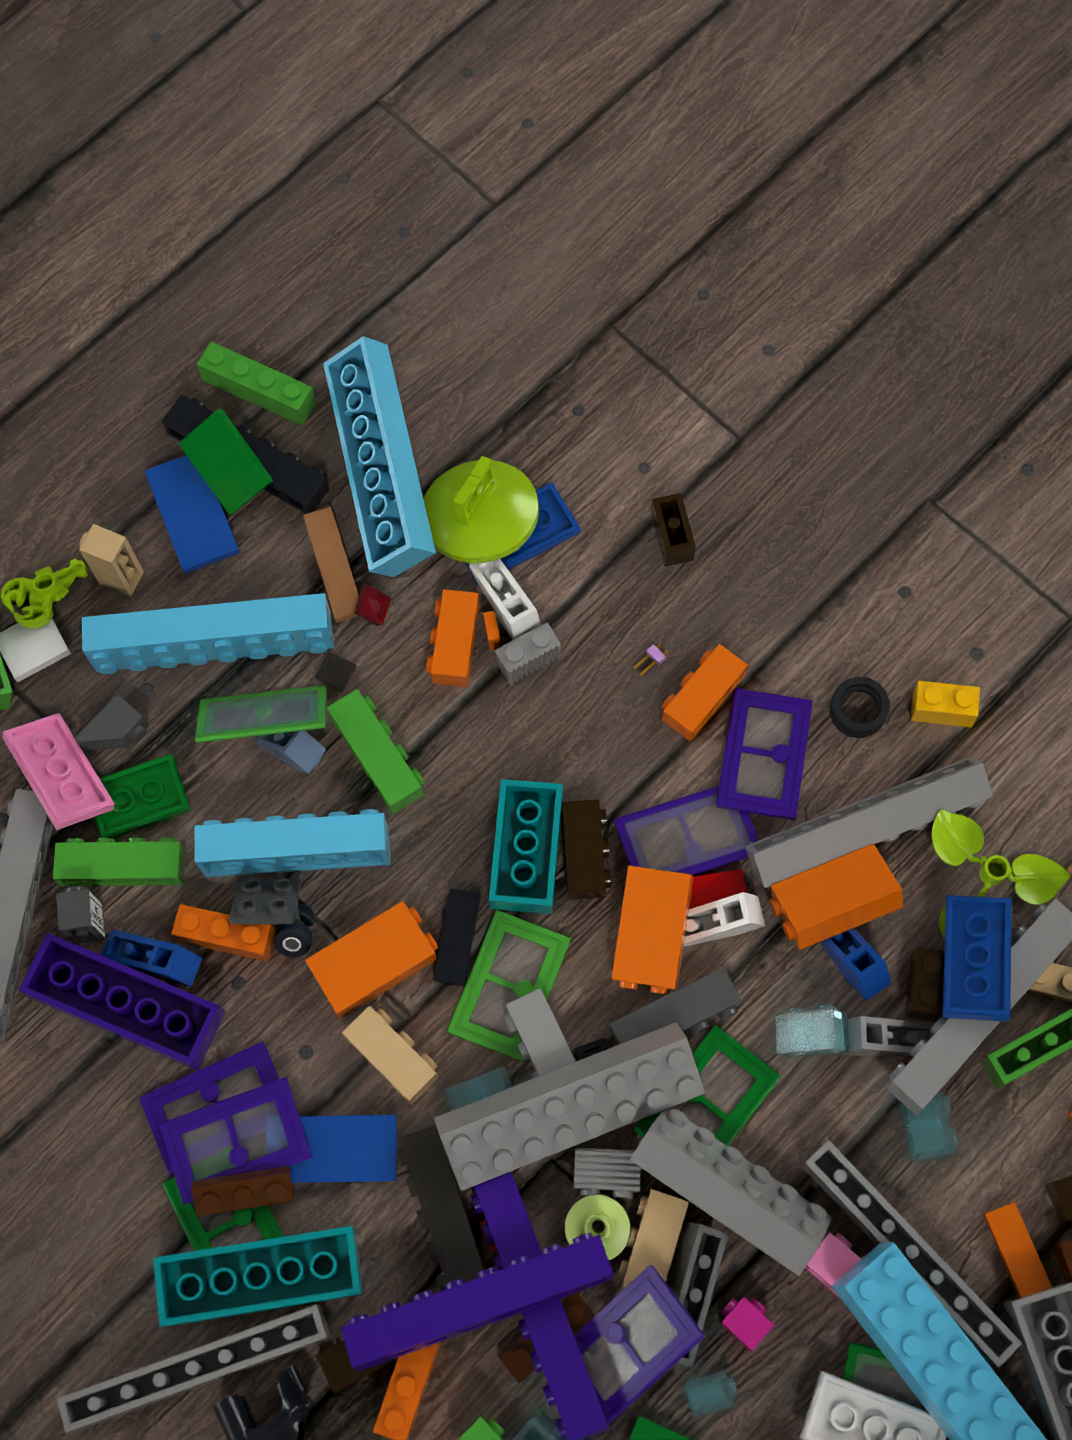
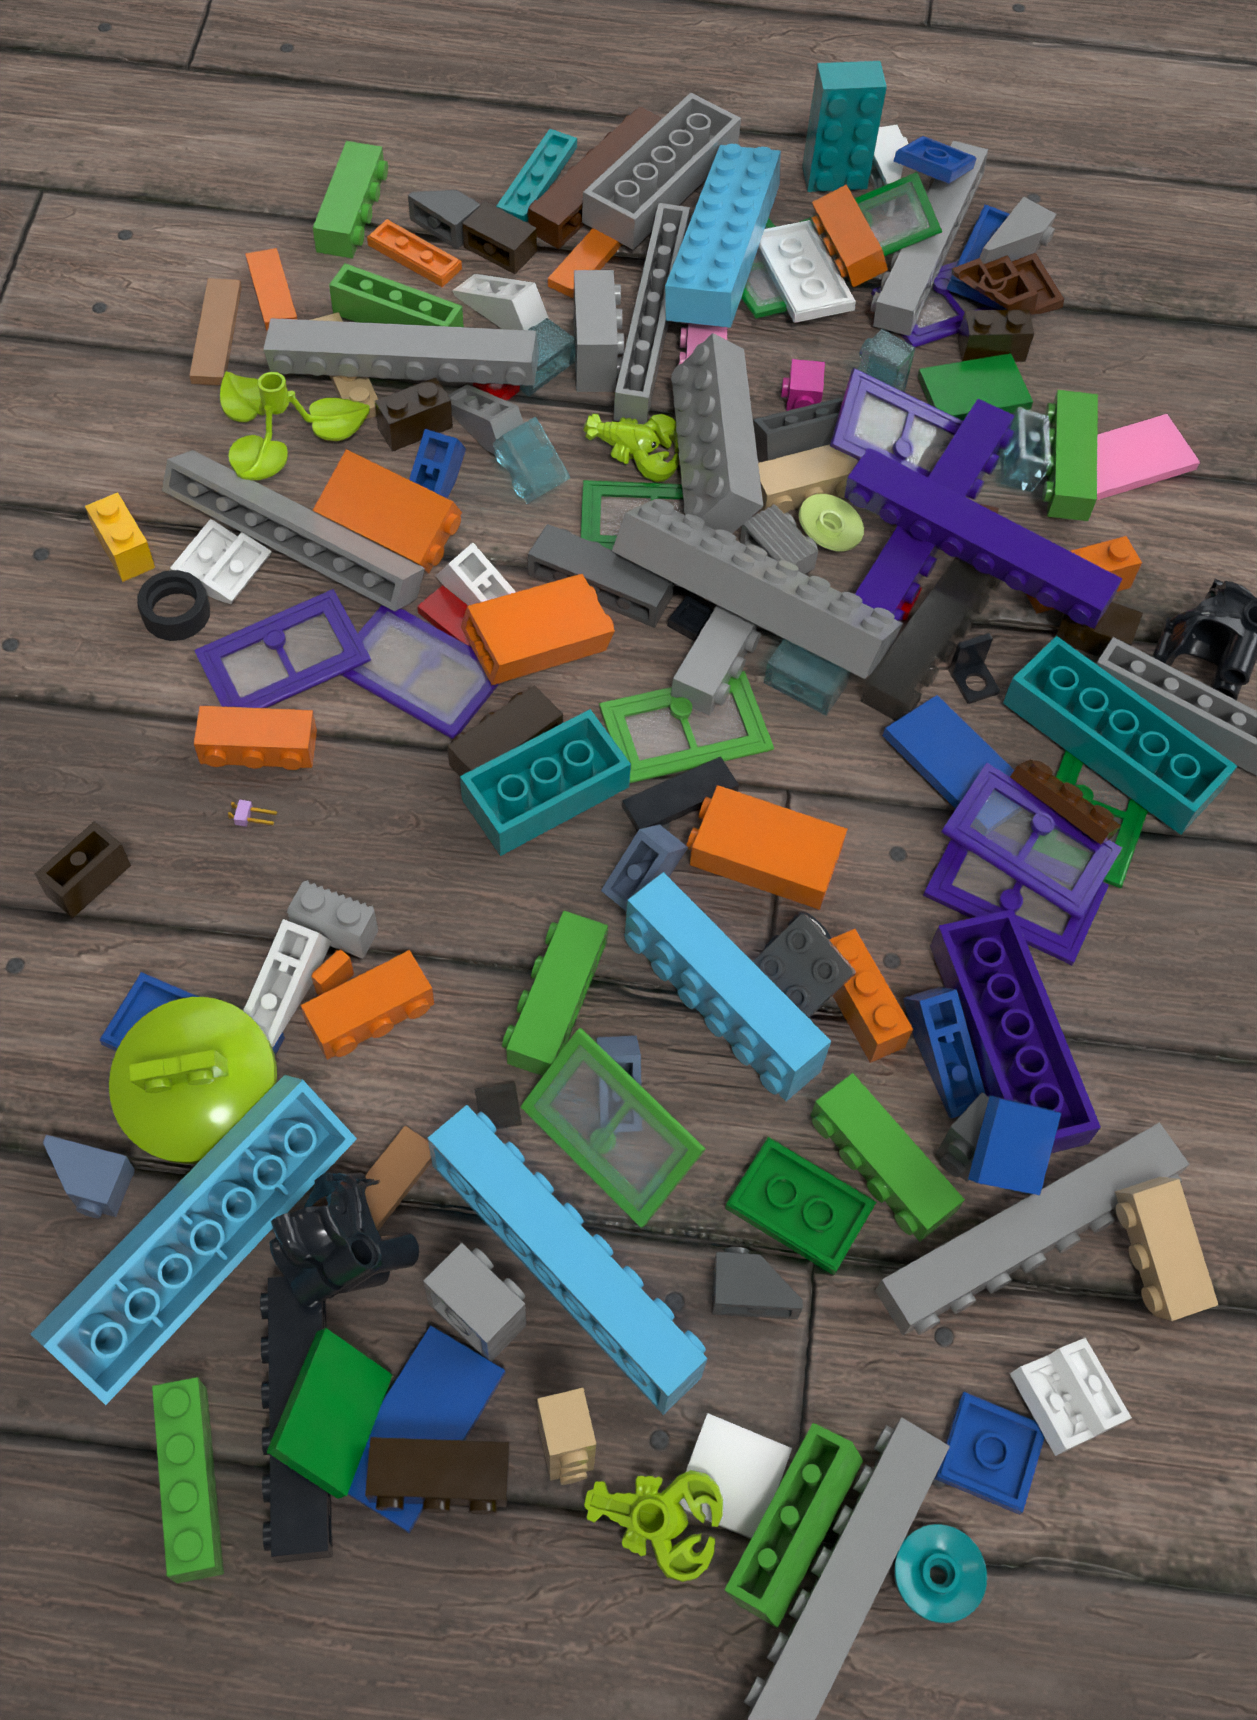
camera: 135 degrees left, 10 degrees down
(46, 916) = (1014, 1145): none -> blue tile
(58, 771) = (851, 1300): bright pink tile -> none
(153, 496) = (437, 1474): none -> dark brown brick
(222, 571) = (476, 1301): none -> light grey brick
(305, 508) = (335, 1243): none -> black helmet
(372, 605) = (392, 1118): dark red tile -> none
(391, 1053) = (837, 769): tan brick -> none
(405, 1231) = (968, 662): none -> black bracket
(419, 869) = (647, 856): none -> sand blue slope
(467, 428) = (90, 1176): none -> sand blue slope
(784, 1140) = (637, 441): none -> lime animal
(879, 761) = (222, 561): none -> white slope
(915, 1183) = (596, 330): none -> light grey brick
(977, 958) = (366, 368): blue tile -> none
(1009, 1139) = (503, 301): none -> white slope

